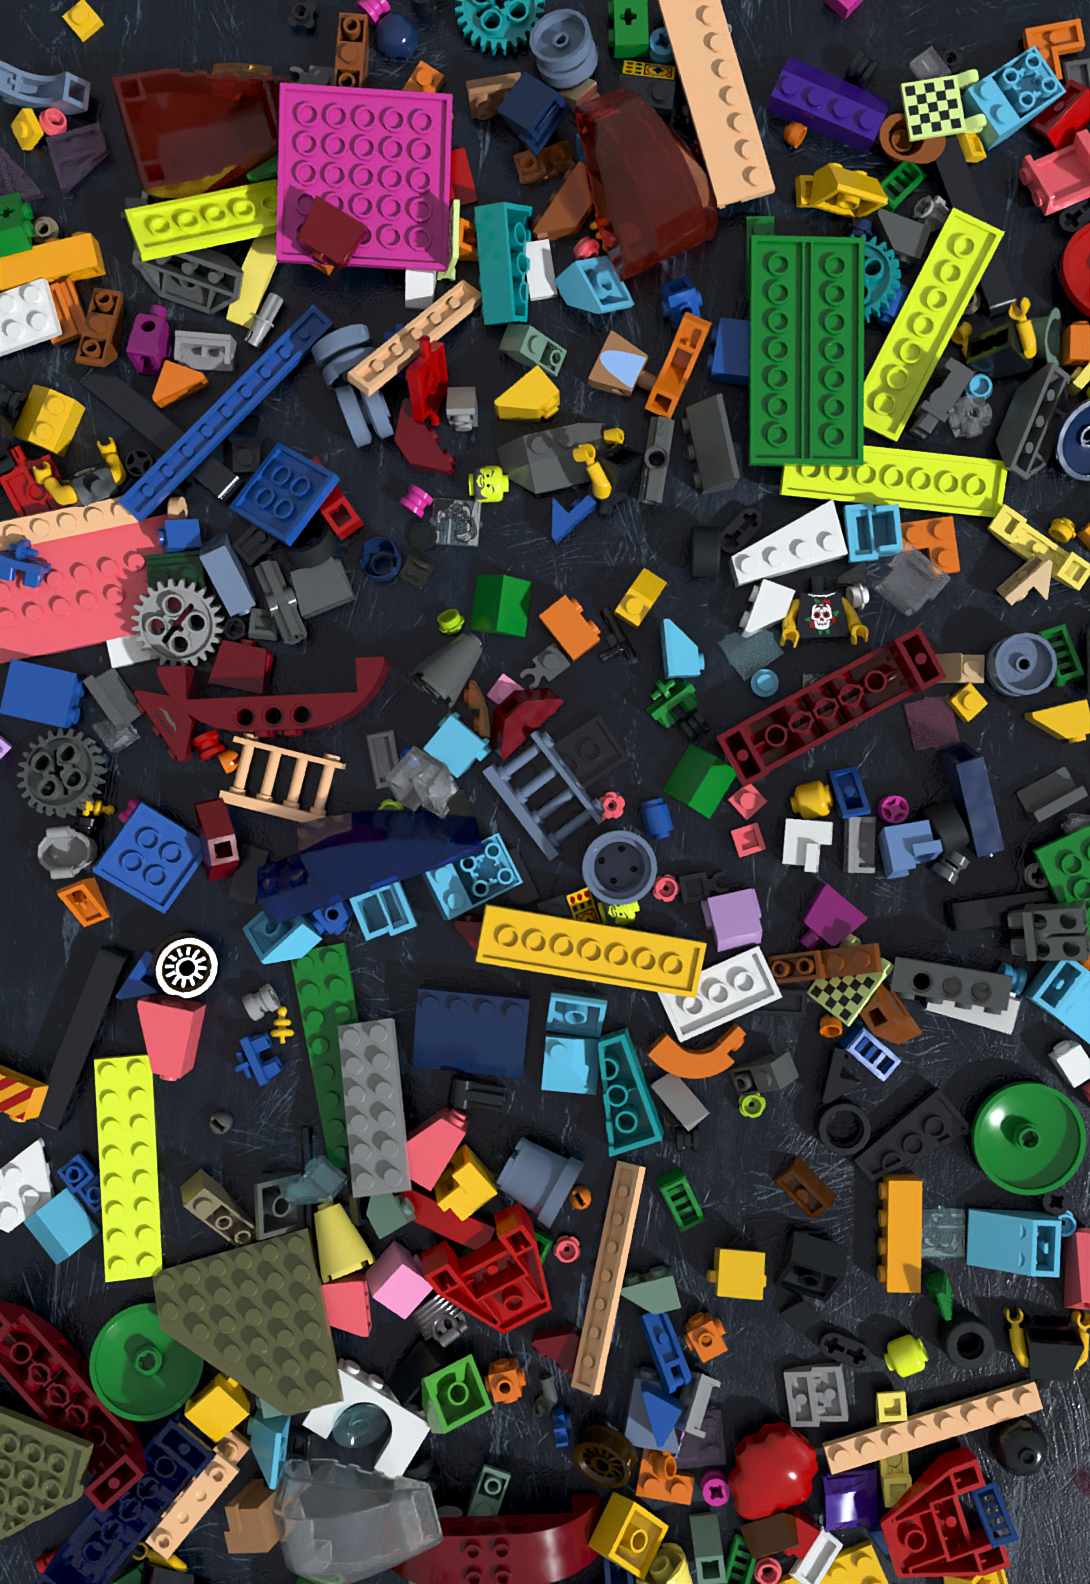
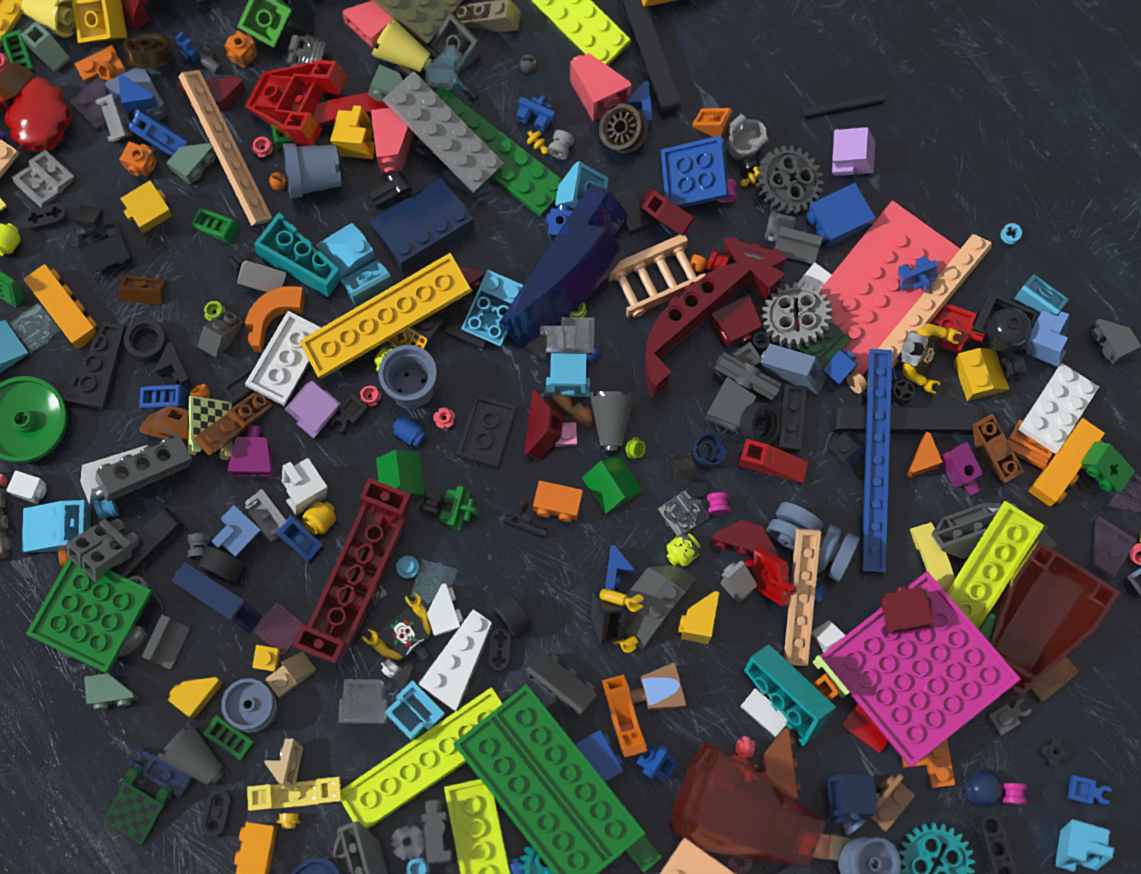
camera: 145 degrees right, 15 degrees down
(53, 229) = (1081, 489): dark tan plate -> none
(205, 351) = (925, 490): light grey hinge -> none
(263, 321) = (907, 538): light grey axle -> none
(284, 493) = (800, 439): blue plate -> none
(352, 51) = (996, 744): dark orange slope -> none
(383, 755) = (609, 339): dark grey tile -> none
(383, 911) = (530, 245): medium azure plate -> none
(398, 1280) = (351, 52): bright pink plate -> none
(532, 348) = (725, 656): sand green slope -> none
(534, 819) = (486, 370): sand blue fence -> none
(547, 164) = (817, 788): clear orange slope -> none
(548, 664) = (553, 471): dark grey plate -> none
(593, 286) = (719, 725): medium azure slope -> none
(640, 598) = (529, 556): yellow slope -> none
(658, 443) = (581, 637): dark grey piece -> none
(679, 653) = (476, 539): medium azure slope -> none
(713, 1480) = (71, 86): dark pink wheel -> none
(747, 801) = (356, 486): coral plate -> none
(747, 839) = (341, 463): coral plate -> none
(898, 810) = (260, 549): dark pink wheel -> none
(937, 538) = (369, 749): orange plate -> none

